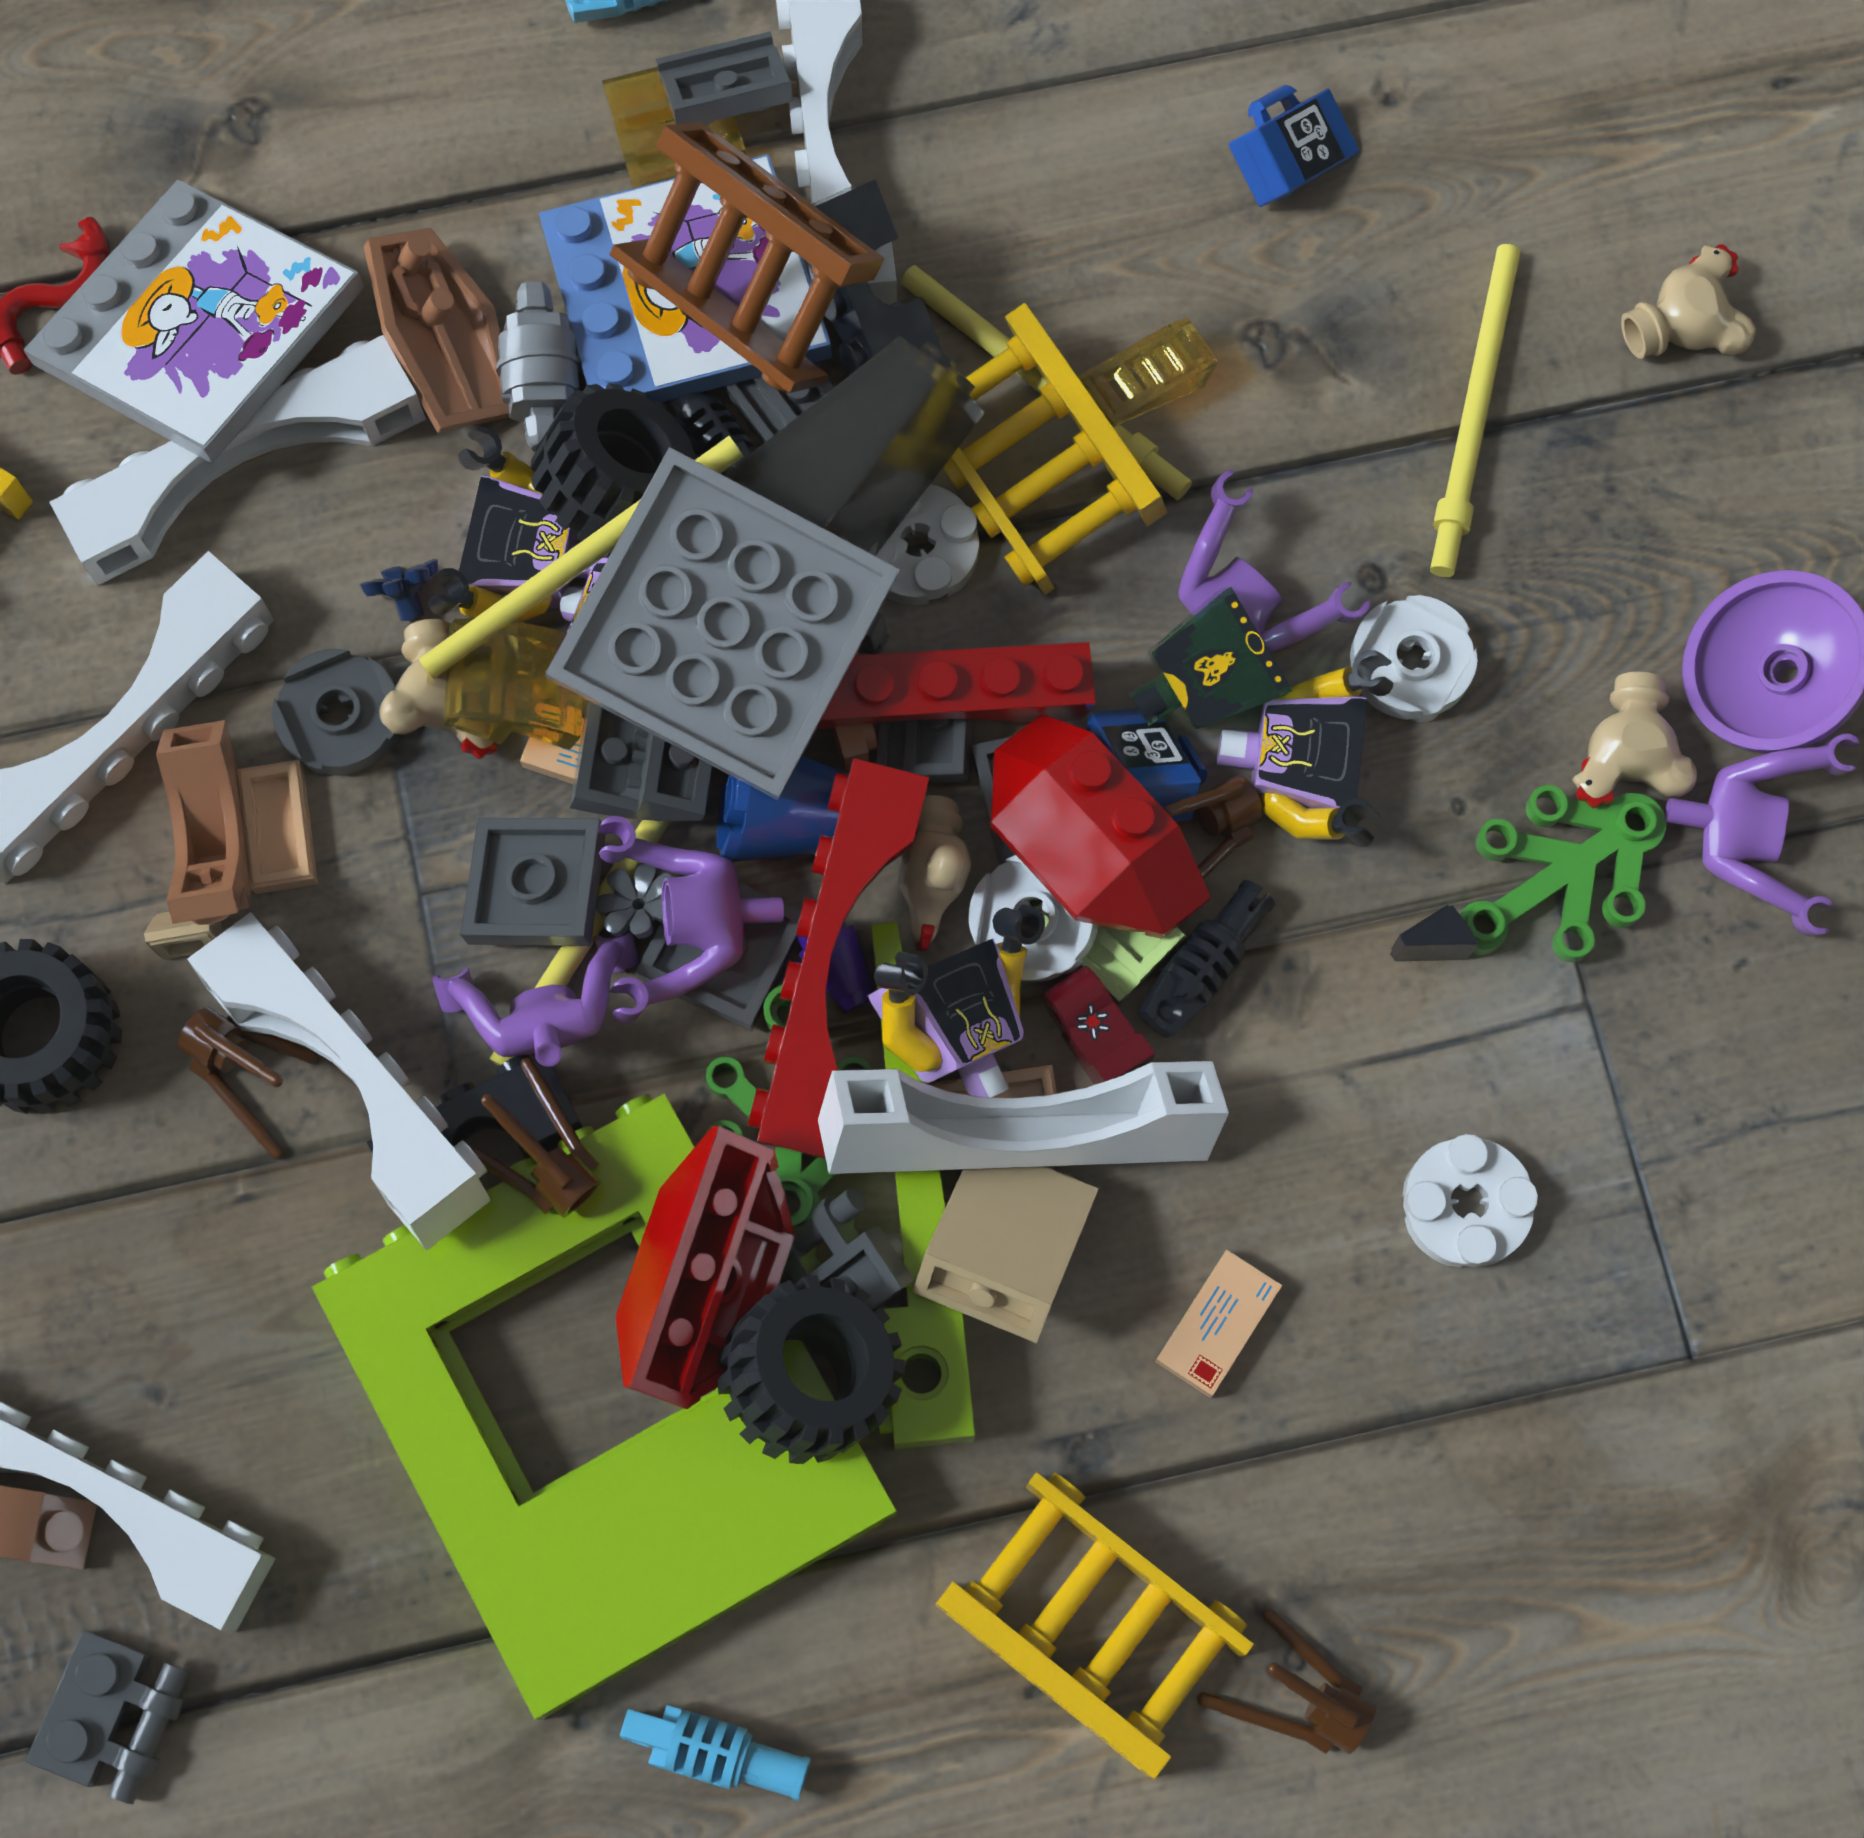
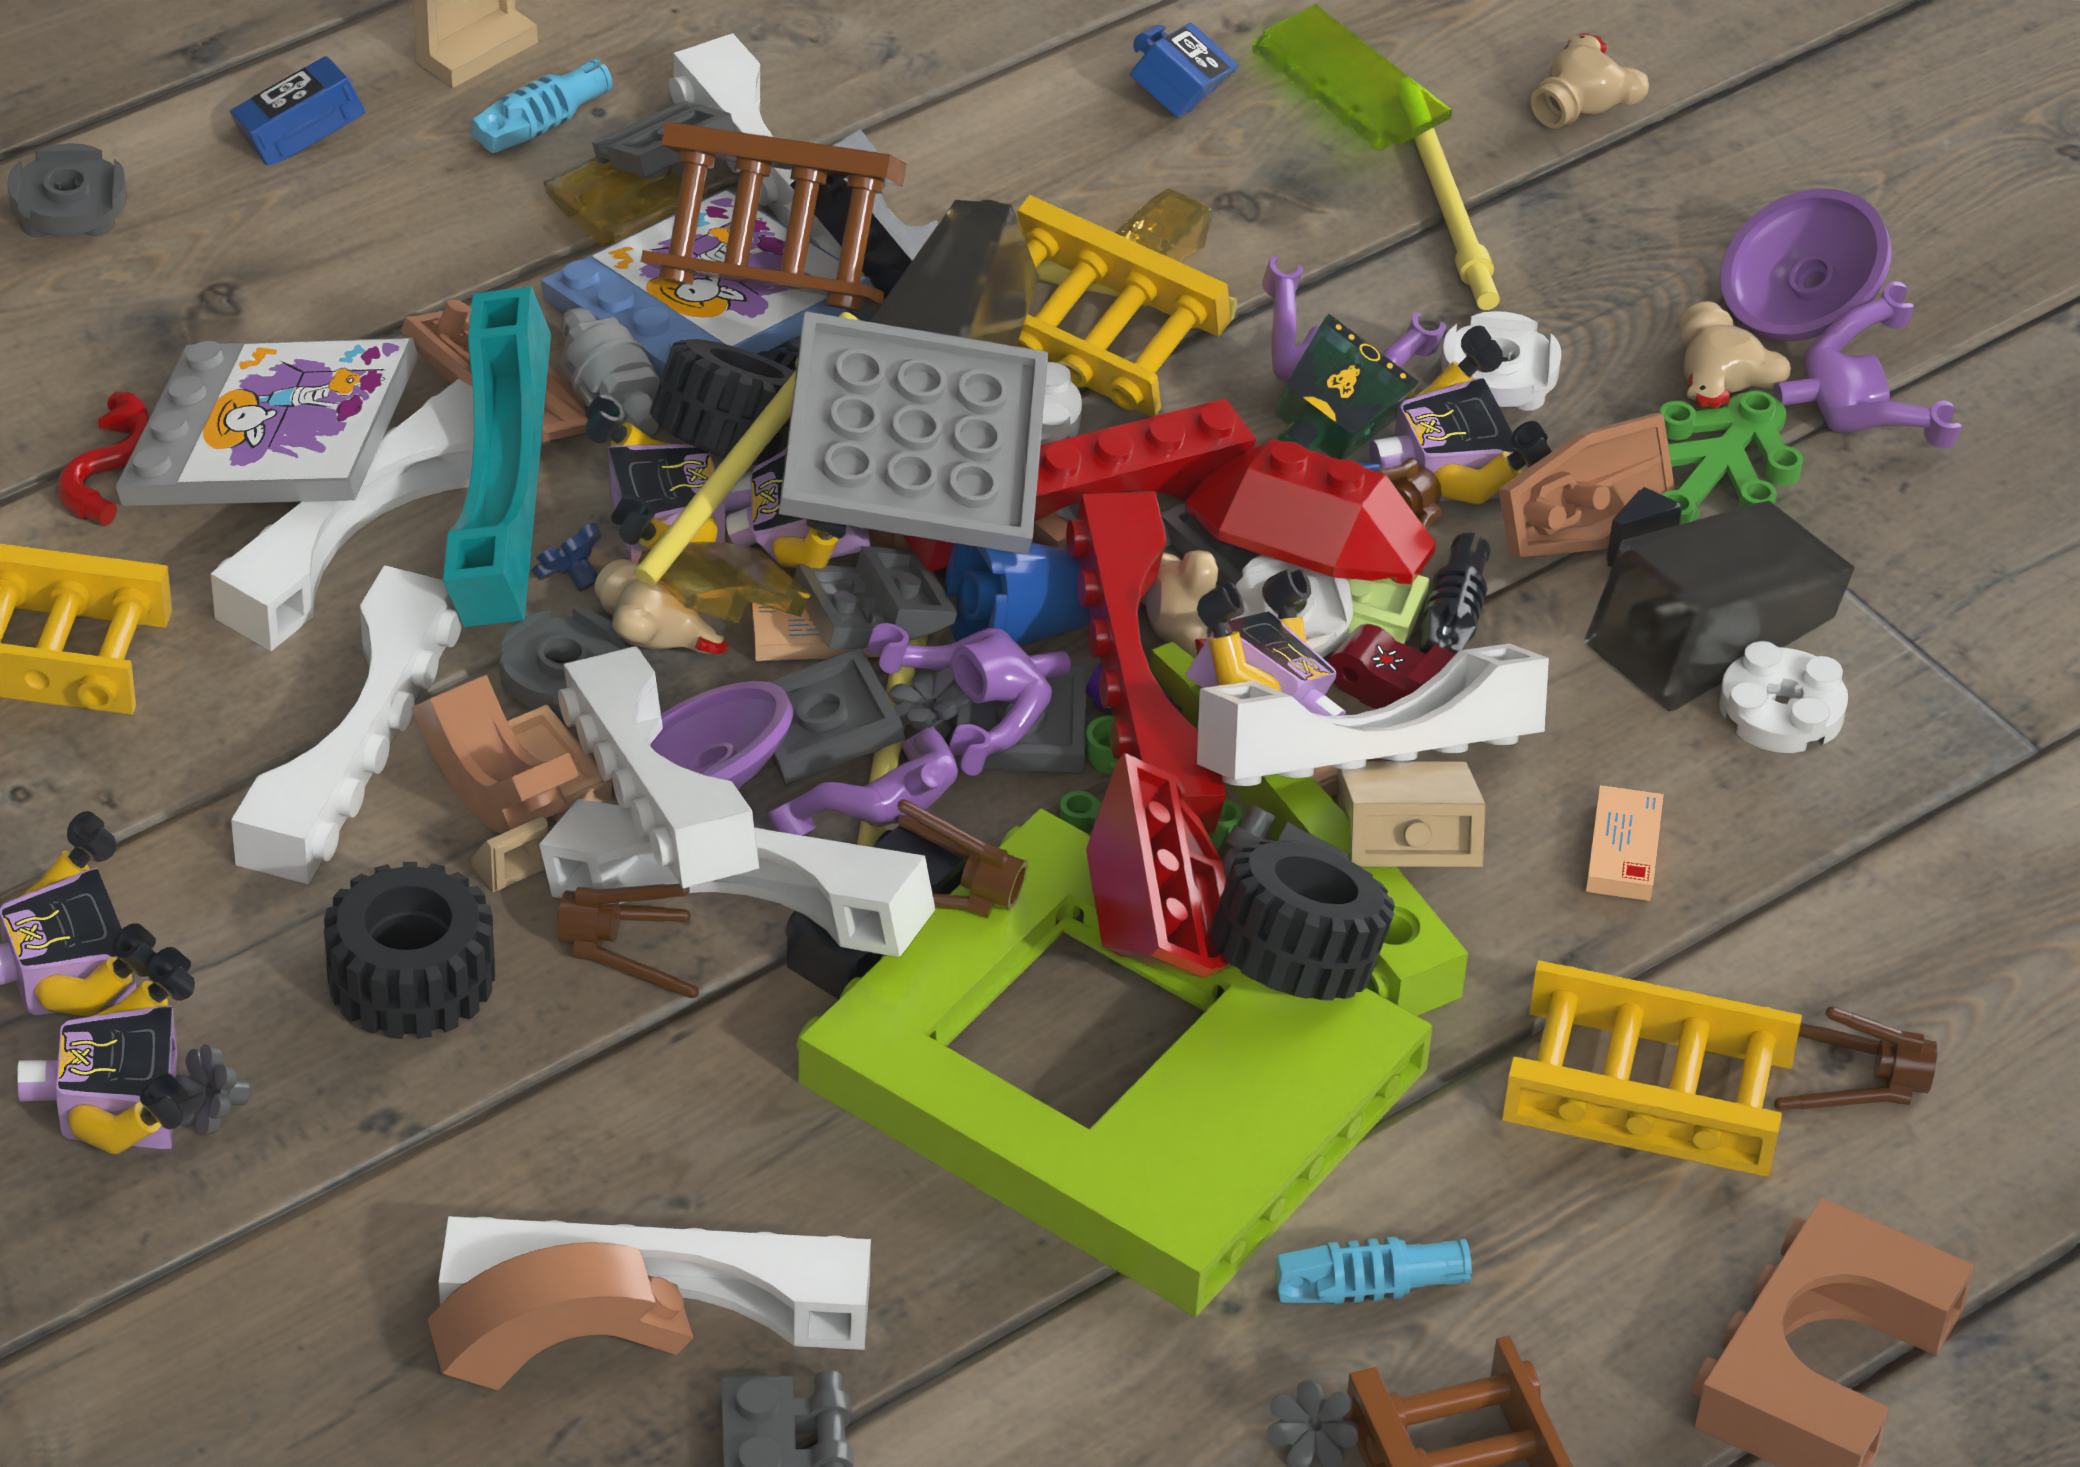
camera: 25 degrees left, 30 degrees down
(289, 1041) = (692, 819): none -> white arch
(396, 884) = (726, 730): none -> medium lavender dish
(407, 368) = (493, 536): none -> teal arch
(1400, 880) = (1581, 486): none -> nougat piece
(1454, 219) = (1349, 79): none -> clear neon green windscreen
(1460, 1065) = (1705, 590): none -> clear smoke slope

